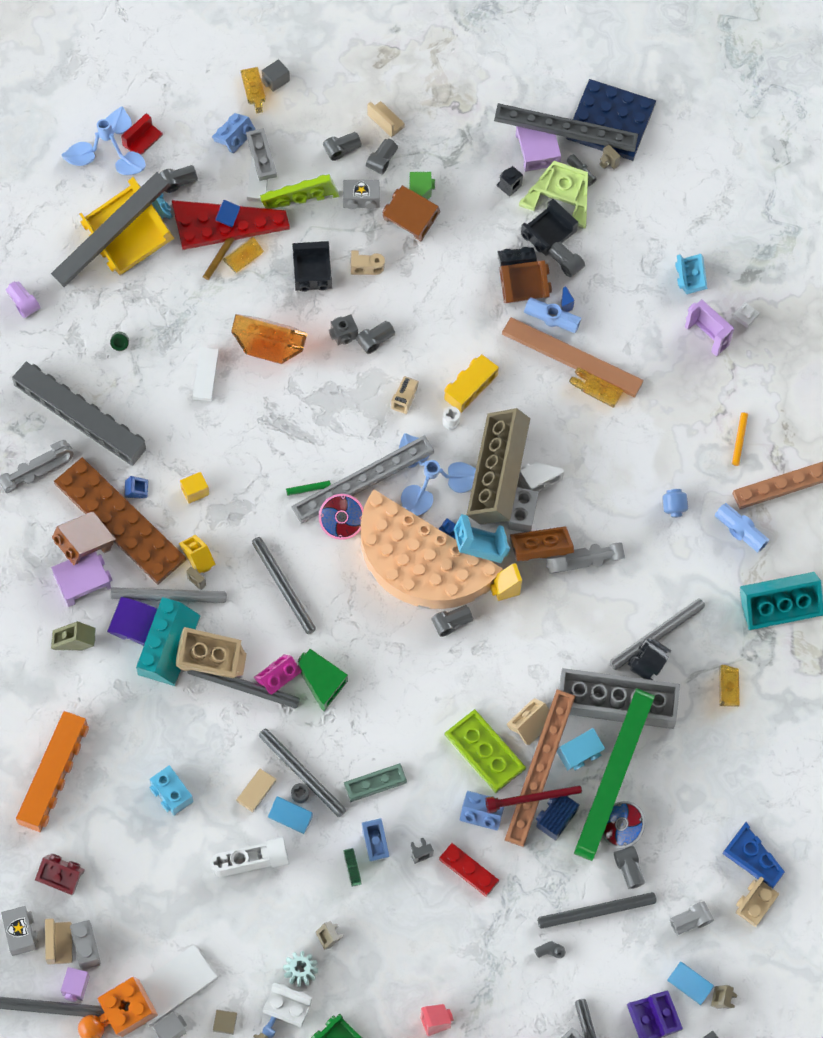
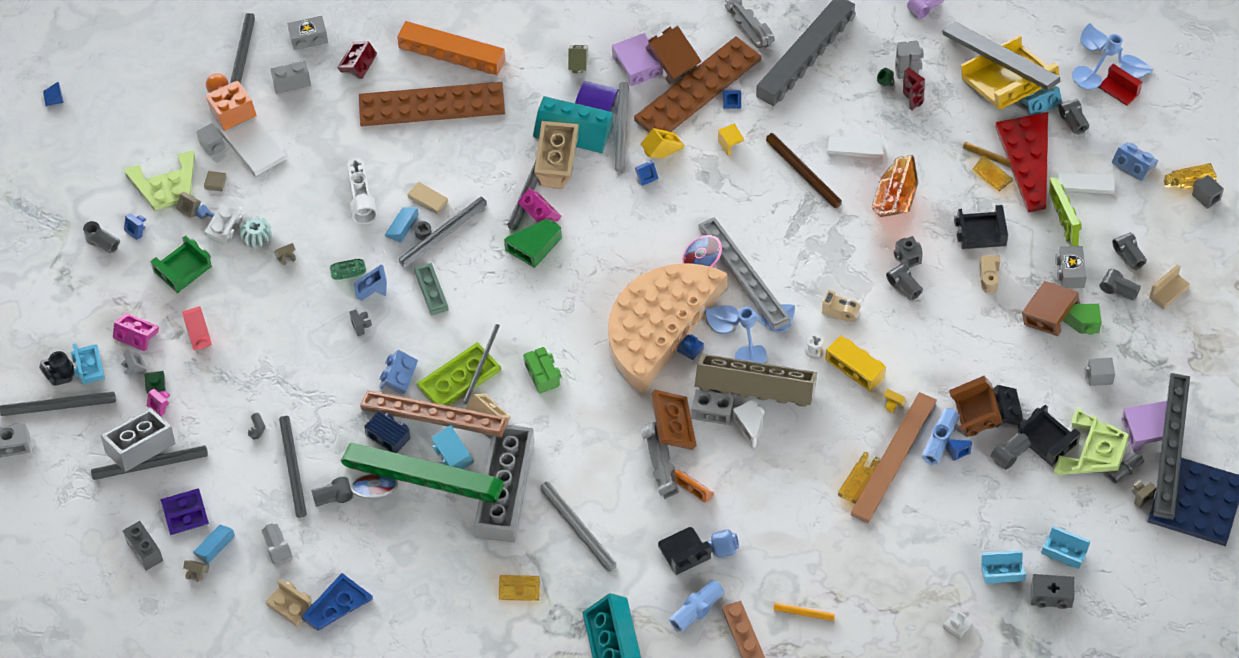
camera: 95 degrees right, 10 degrees down
(58, 942) = (295, 54): tan panel -> none
(74, 984) = (257, 73): lavender brick -> none
(104, 315) = (908, 56): none -> light grey brick
(126, 792) = (431, 104): none -> dark orange plate
(142, 310) = (913, 88): none -> dark red bracket
(171, 791) = (428, 132): medium azure brick -> none
(196, 578) = (634, 144): dark tan tile -> none
(227, 213) = (1032, 152): blue slope -> none
(233, 422) = (803, 170): none -> reddish brown axle
(235, 569) = (646, 173): none -> blue tile
(261, 154) = (1106, 178): light grey plate -> none
(283, 585) = (631, 213): dark grey axle -> none
(307, 488) = (735, 231): green piece -> none
(446, 622) = (592, 344): dark grey piece -> none
(469, 869) = (341, 363): red plate -> none
(473, 726) = (481, 363): none -> dark grey axle
(479, 180) = (1100, 371): none -> light grey brick
(480, 667) = (541, 369): none -> bright green brick
(481, 542) = (671, 361): medium azure panel -> none
(494, 804) = (396, 371): dark red piece -> none
(507, 583) = (629, 391): yellow slope -> none
(510, 180) = (1103, 394): black brick -> none
(513, 352) = (894, 400): none -> yellow tile
(609, 530) = (693, 486): none -> orange slope
(649, 659) = (543, 507): black brick -> none
(668, 223) = (1066, 547): none -> medium azure bracket
(684, 536) = (684, 550): none -> black bracket
(711, 324) = (923, 590): lavender panel -> none
(712, 236) = (1044, 585): none -> dark grey brick

